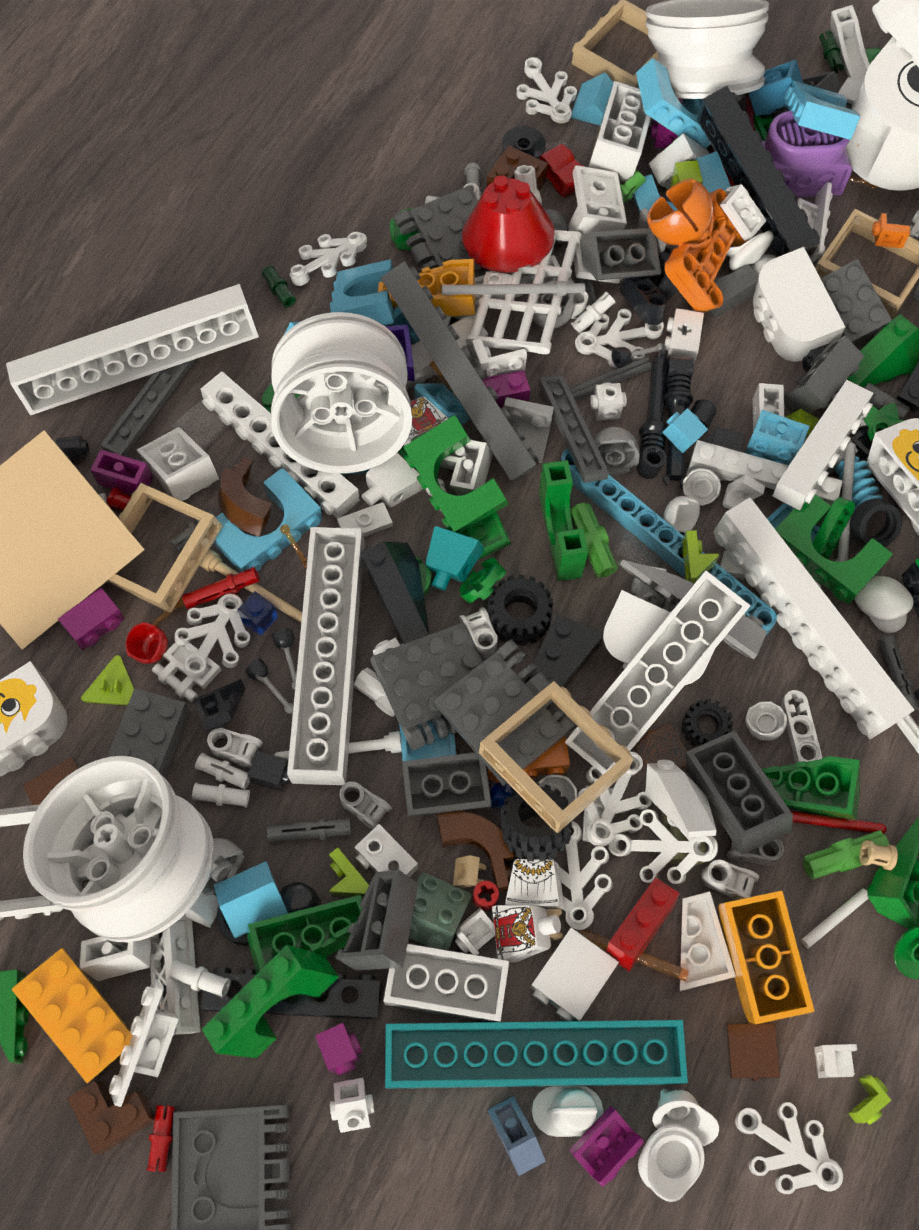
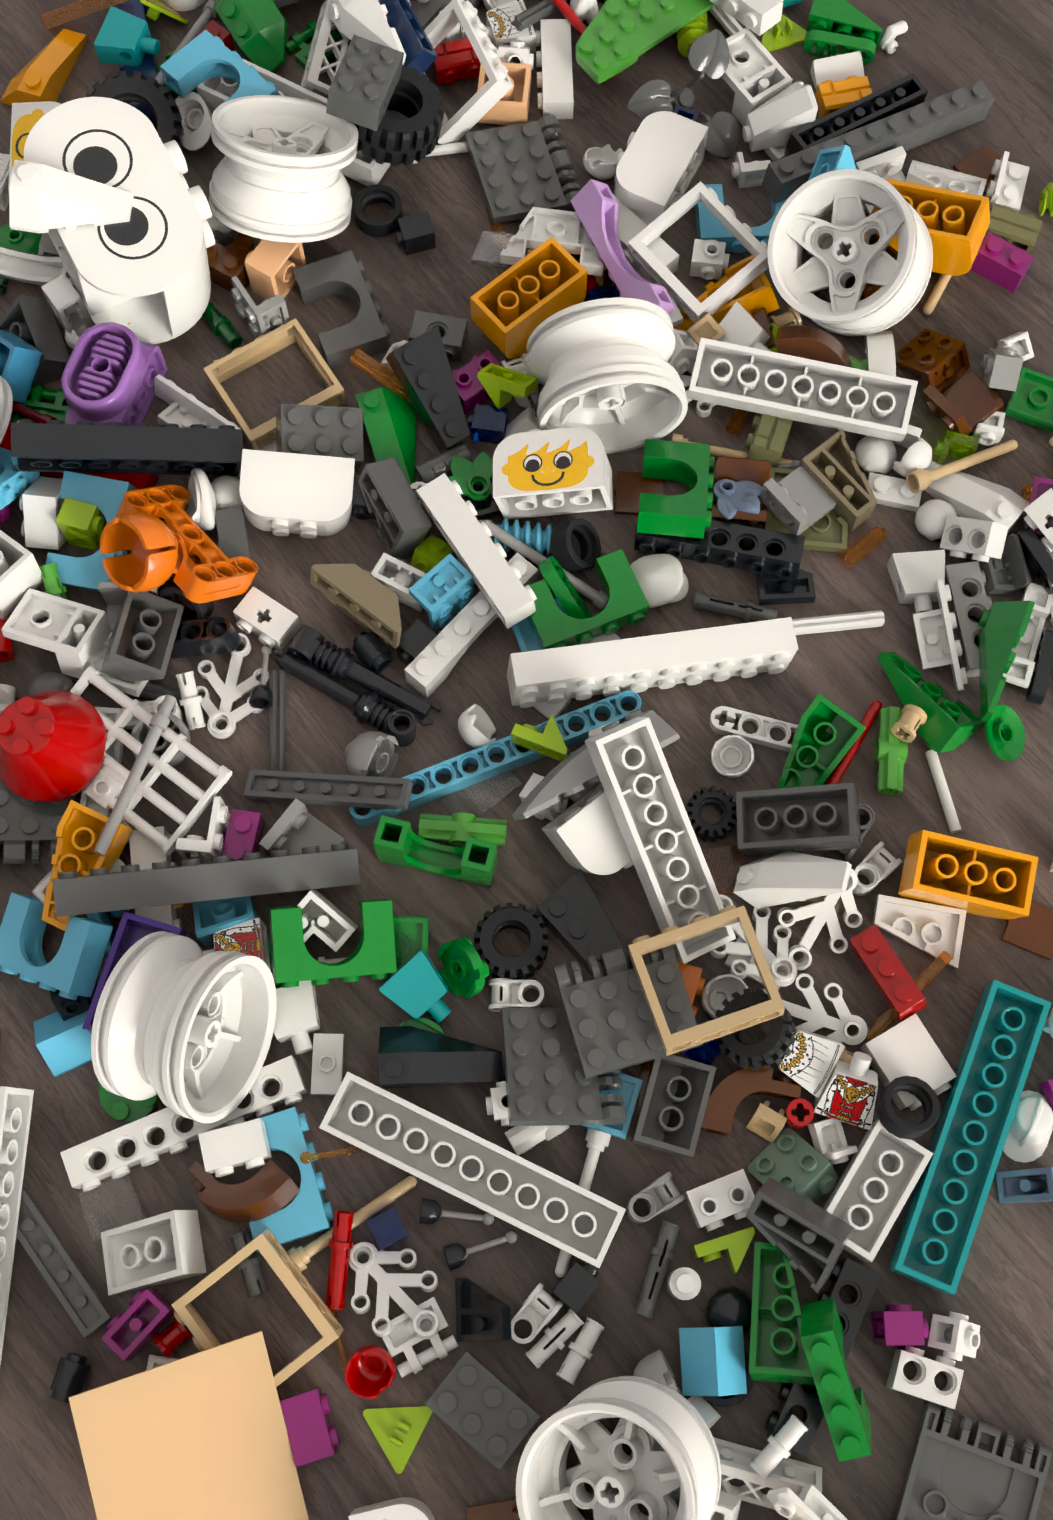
camera: 65 degrees left, 5 degrees up
(271, 474) = (235, 1146): none -> white brick
(298, 1094) = (923, 1383): none -> white brick
(304, 853) = (683, 1283): none -> white brick
(551, 981) = (922, 1092): none -> black tyre
(608, 401) = (312, 744): white brick -> none
(684, 429) = (387, 676): medium azure brick -> none
(702, 486) = (454, 690): white hair -> none
(737, 384) = (360, 598): none -> dark tan wedge
(742, 211) = (160, 485): white bracket -> none
(742, 489) = (478, 656): white bracket -> none
(821, 110) = (61, 348): medium azure arch -> none
(889, 234) = (257, 354): orange bracket -> none
(899, 208) = (222, 327): none -> dark green pin

